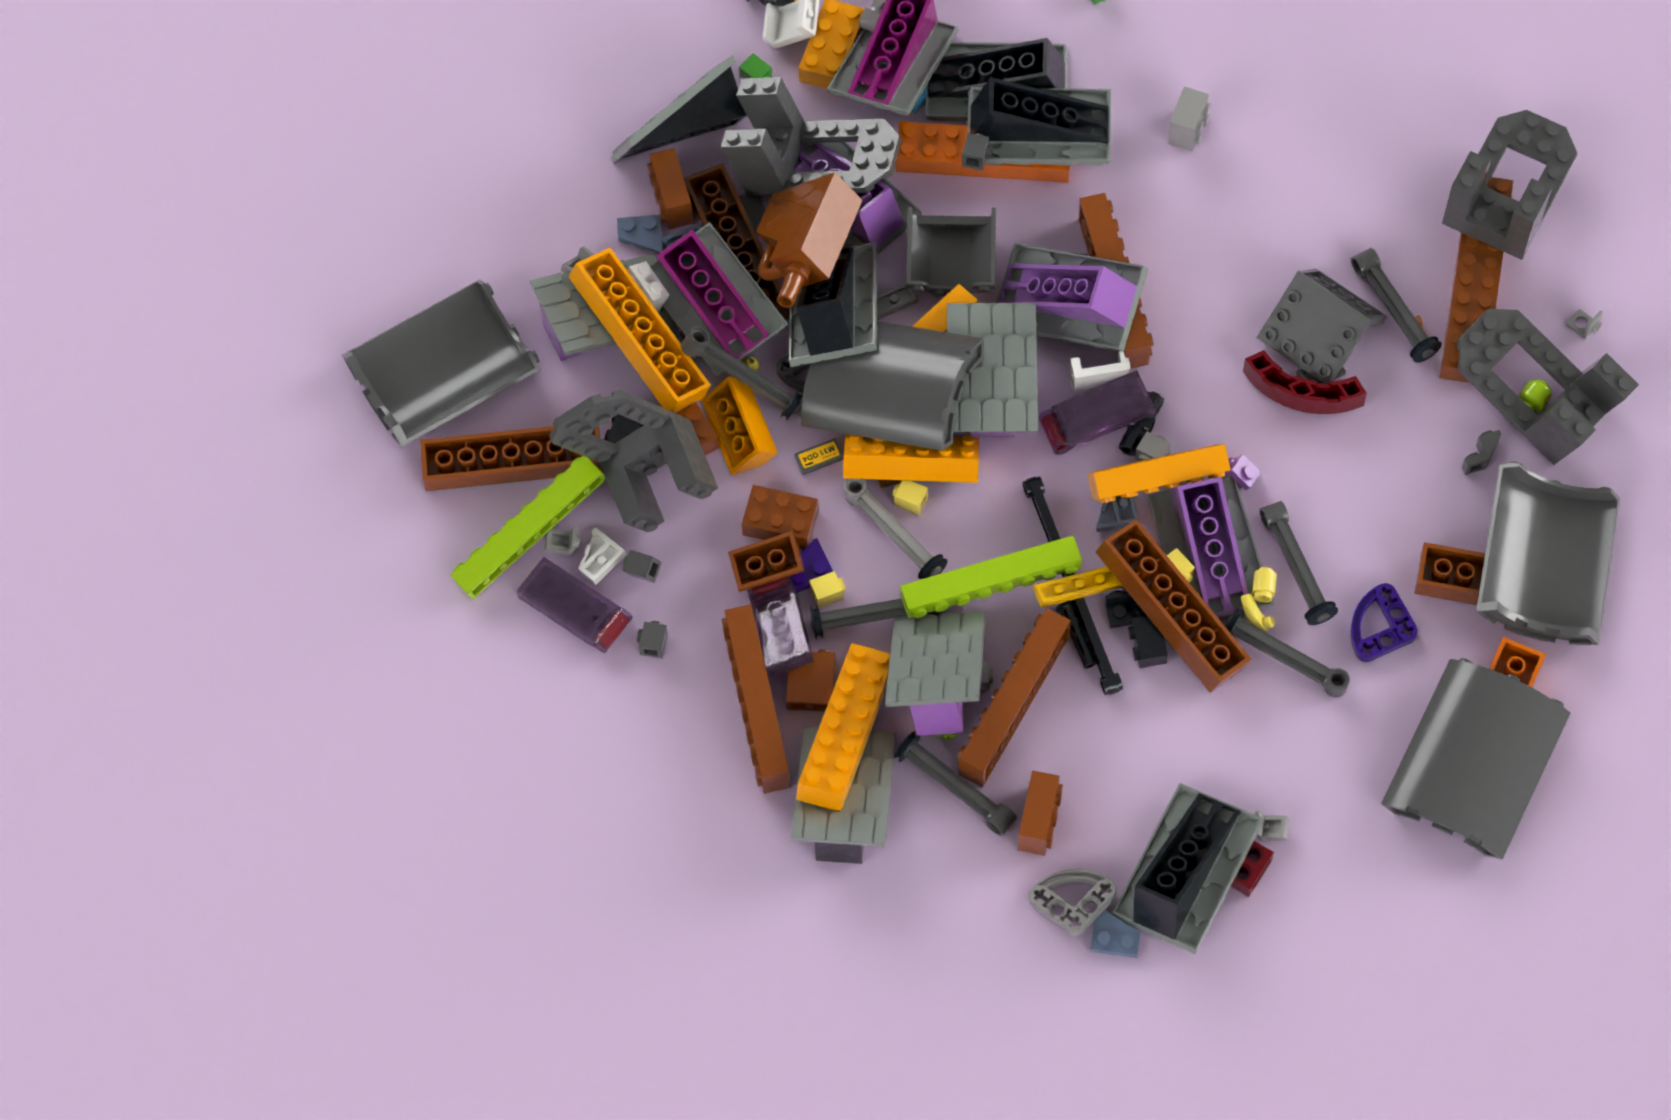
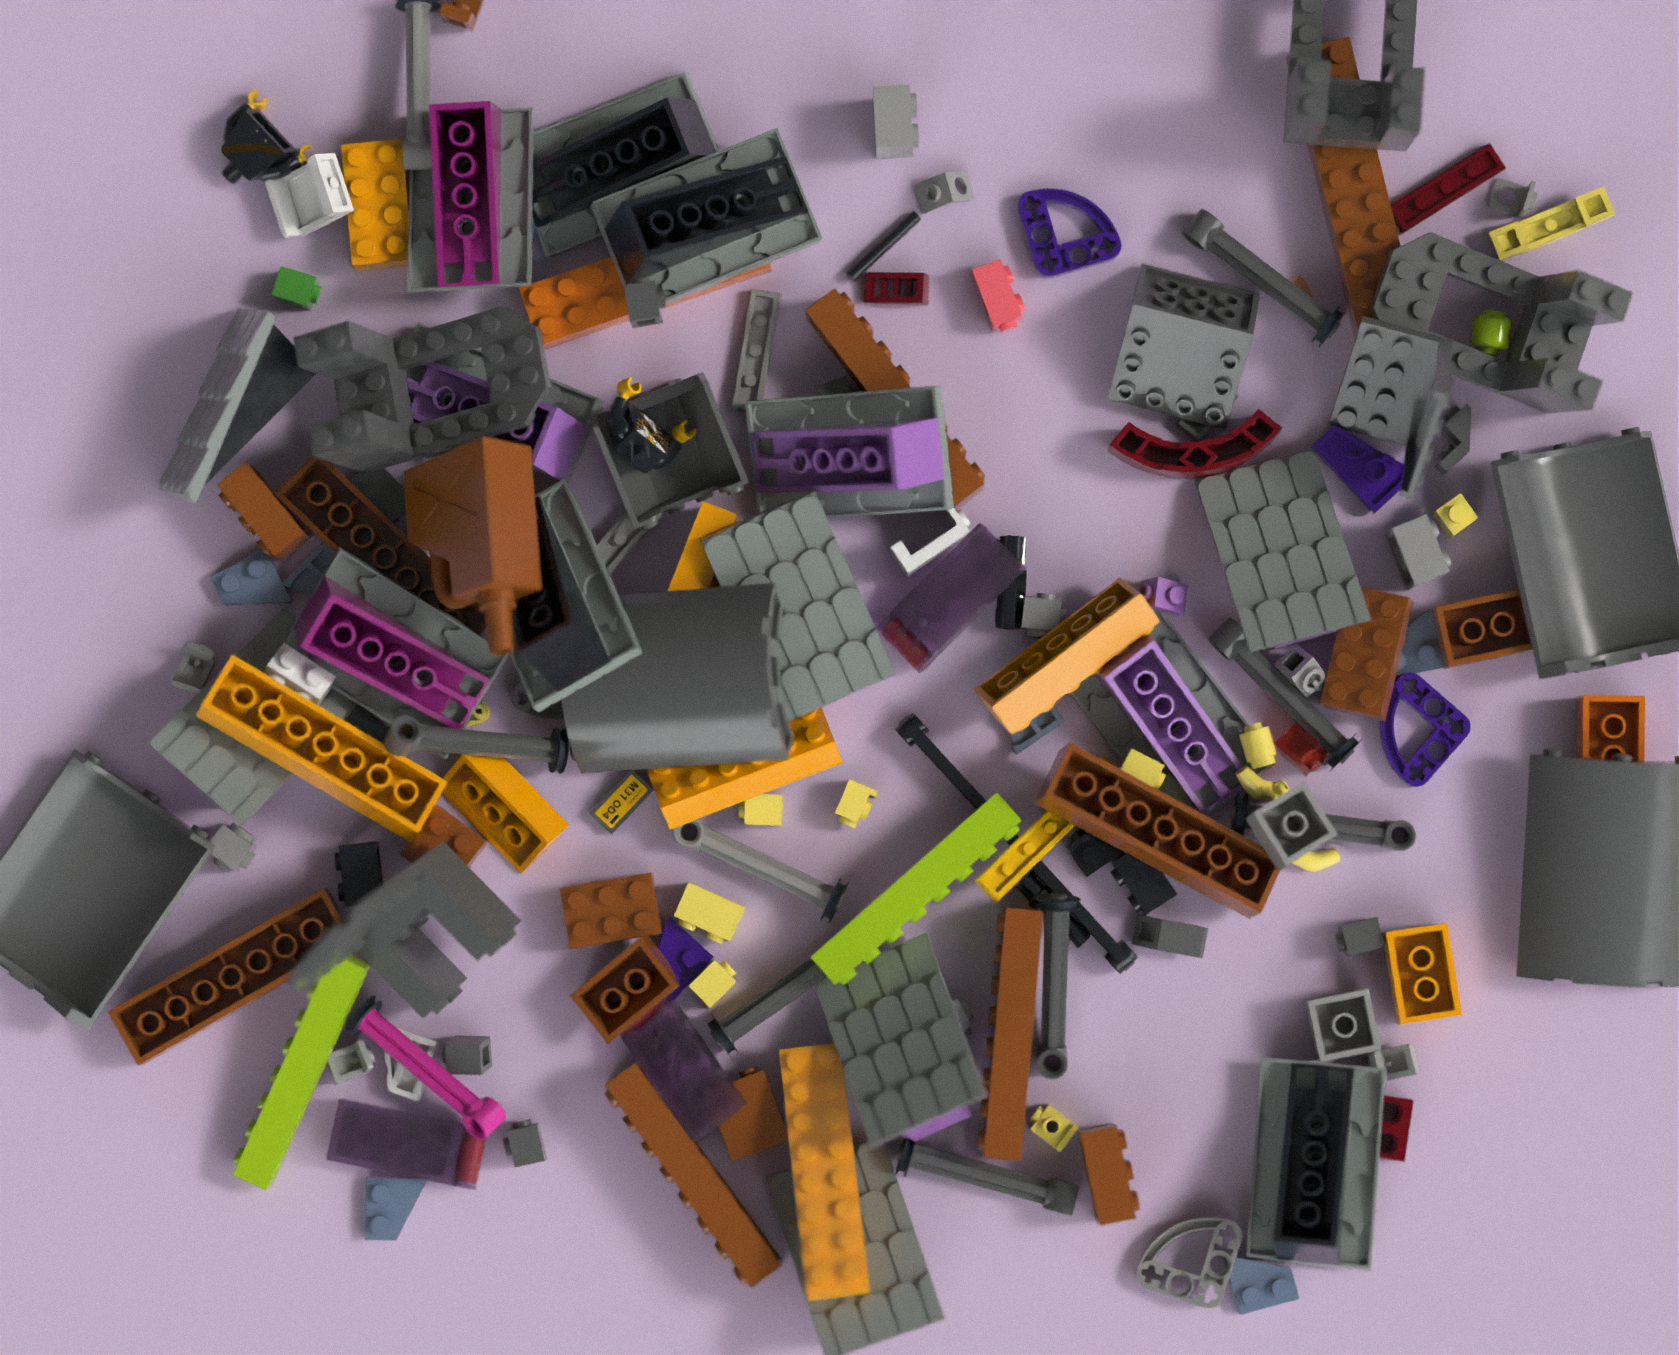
camera: 20 degrees left, 20 degrees up
(543, 642) = (389, 1205): none -> sand blue wing
(550, 381) = (233, 847): none -> light grey brick
(630, 599) = (478, 1114): none -> dark pink piece
(844, 545) = (708, 912): none -> light yellow brick
(935, 234) = (638, 436): none -> black torso
(974, 515) = (854, 803): none -> light yellow brick
(1015, 780) = (1061, 1136): none -> light yellow brick
(1038, 219) = (755, 348): none -> light grey tile
(1057, 678) = (1054, 982): none -> dark grey piece
(1149, 194) = (884, 245): none -> black bar
(1152, 683) = (1170, 936): none -> dark grey slope
(1158, 228) = (909, 277): none -> dark red slope
(1202, 173) = (942, 191): none -> light grey bracket
(1210, 248) = (997, 296): none -> coral brick
(1246, 783) = (1342, 1025): none -> light grey brick
(1264, 241) = (1061, 252): none -> dark purple beam
(1264, 634) = (1291, 826): none -> light grey brick
(1267, 675) = (1318, 860): none -> light yellow arm
(1282, 734) = (1359, 937): none -> dark grey brick
(1292, 600) = (1301, 749): none -> clear red brick
(1315, 551) = (1301, 670): none -> light grey brick
(1315, 774) = (1421, 973): none -> light orange brick
(1332, 473) = (1282, 551): none -> light grey piece
(1364, 557) = (1368, 657): none -> dark orange brick
(1397, 571) = (1421, 647): none -> sand blue wing
(1411, 447) = (1363, 469): none -> dark purple wing
(1427, 507) = (1418, 551): none -> light grey brick
(1451, 395) = (1397, 391): none -> dark grey bracket
(1462, 498) = (1454, 516): none -> light yellow brick
(1544, 300) = (1446, 188): none -> dark red tile
(1590, 350) = (1552, 224): none -> light yellow slope

